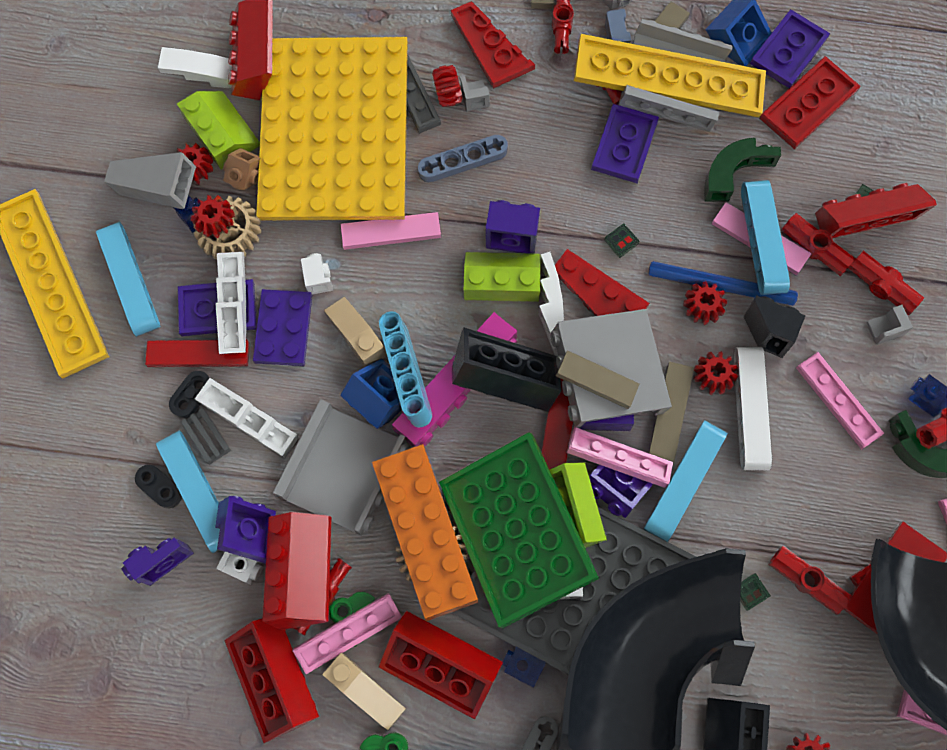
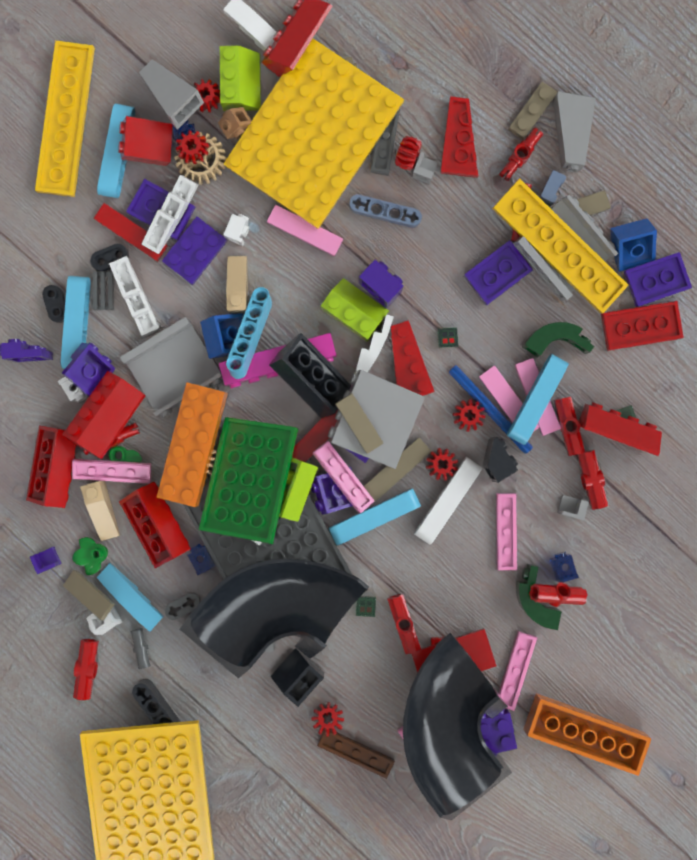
camera: 30 degrees right, 15 degrees up
(155, 245) = (145, 141): none -> red brick
(721, 258) = (502, 393): none -> bright pink tile

